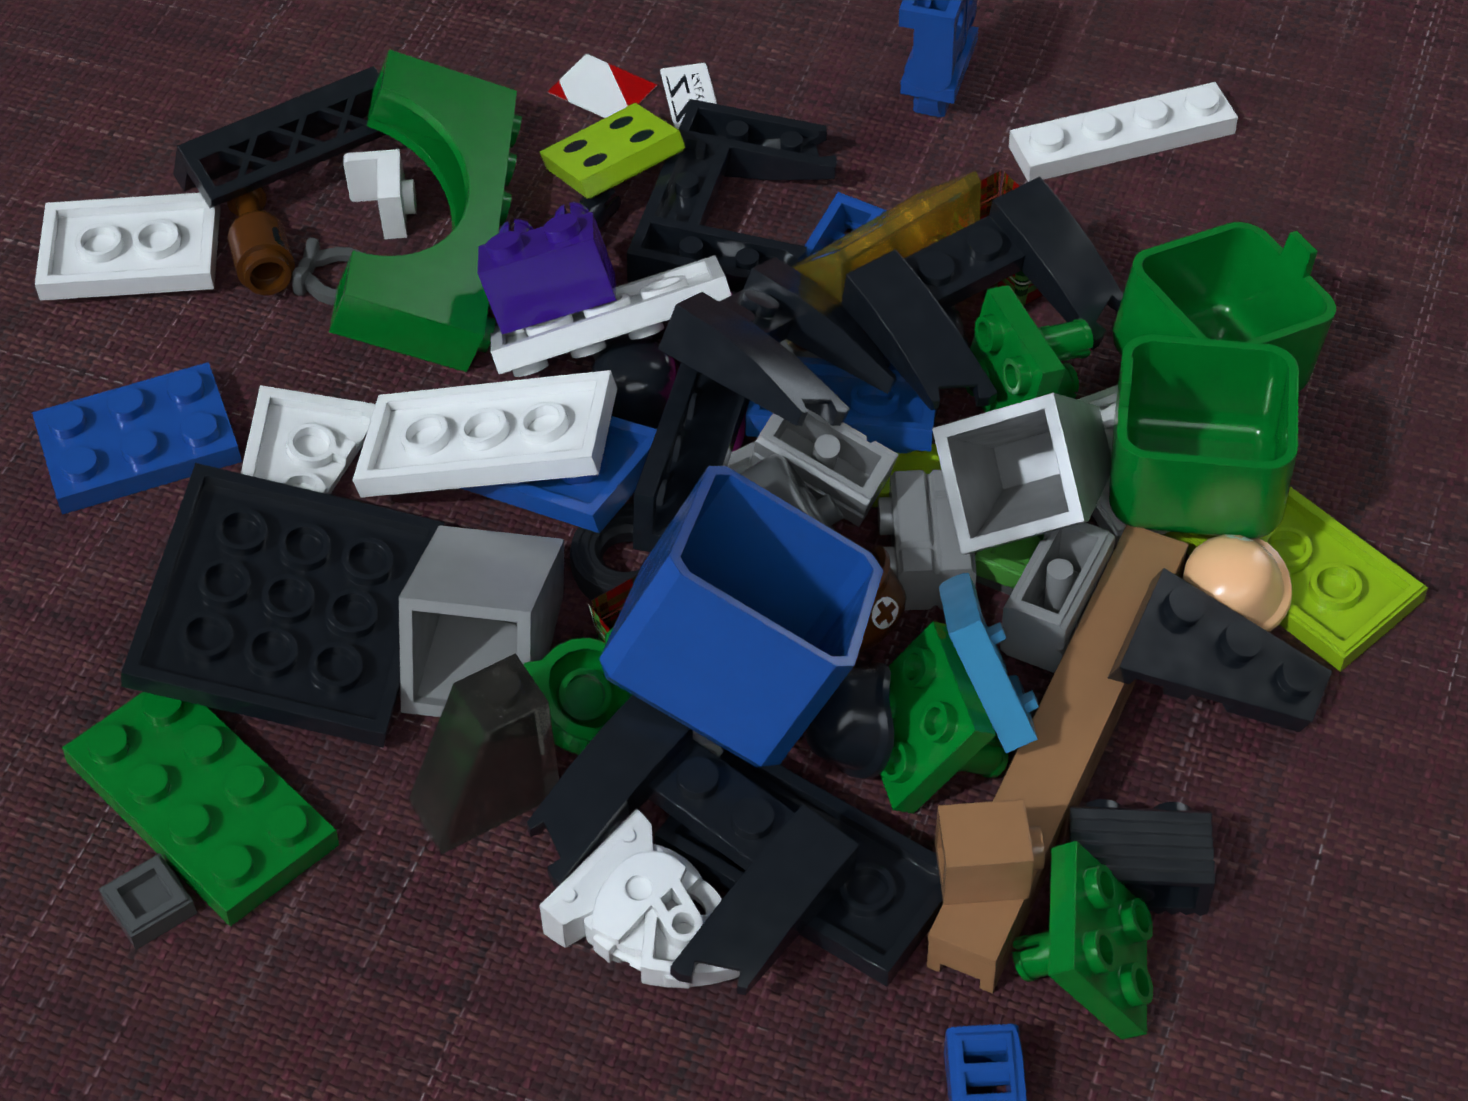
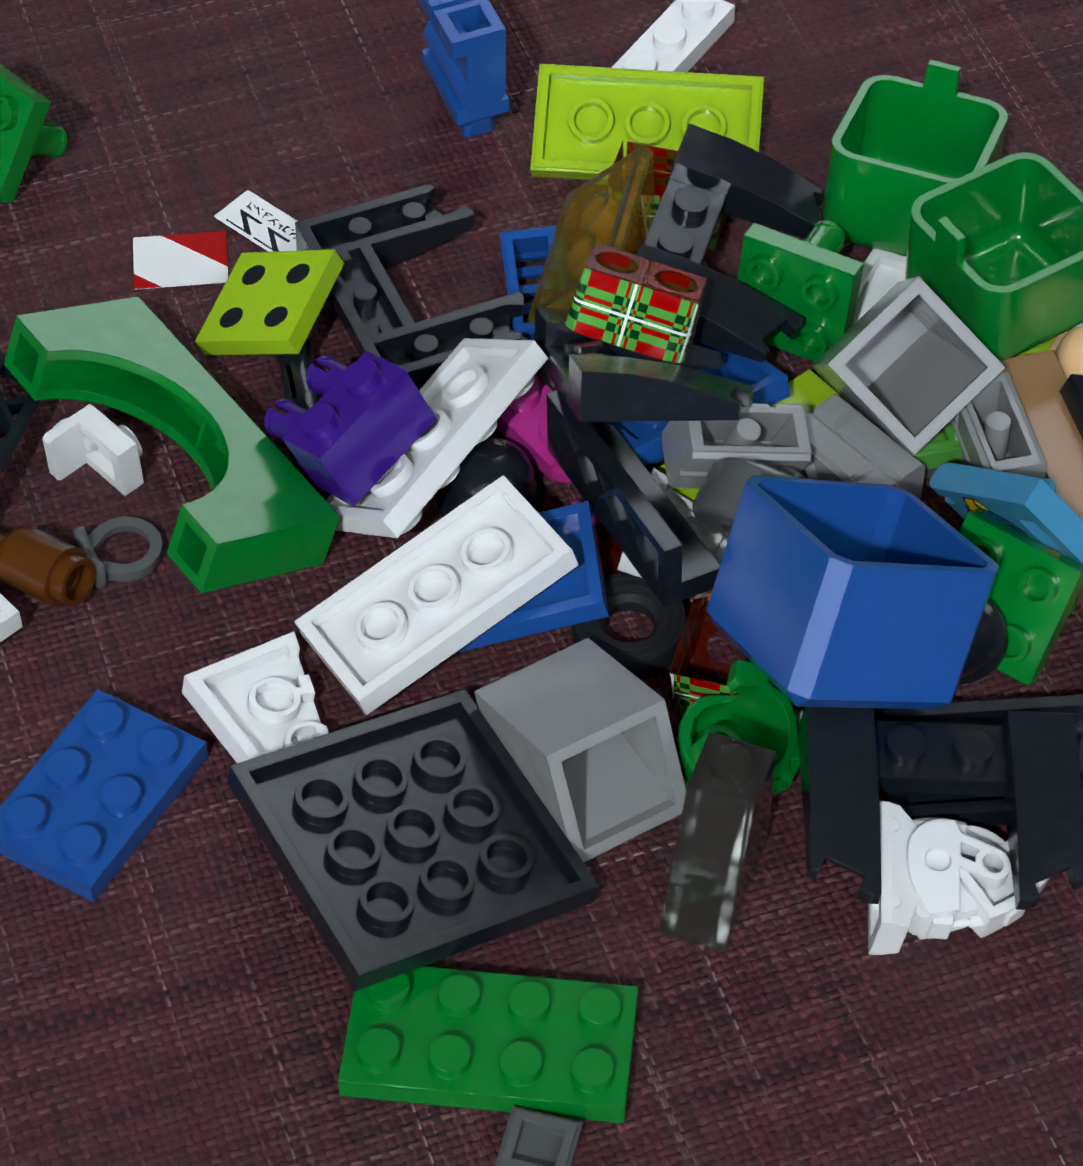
camera: 40 degrees left, 0 degrees up
(833, 294) = (637, 304): none -> piece
(1026, 138) = (591, 110): none -> lime tile

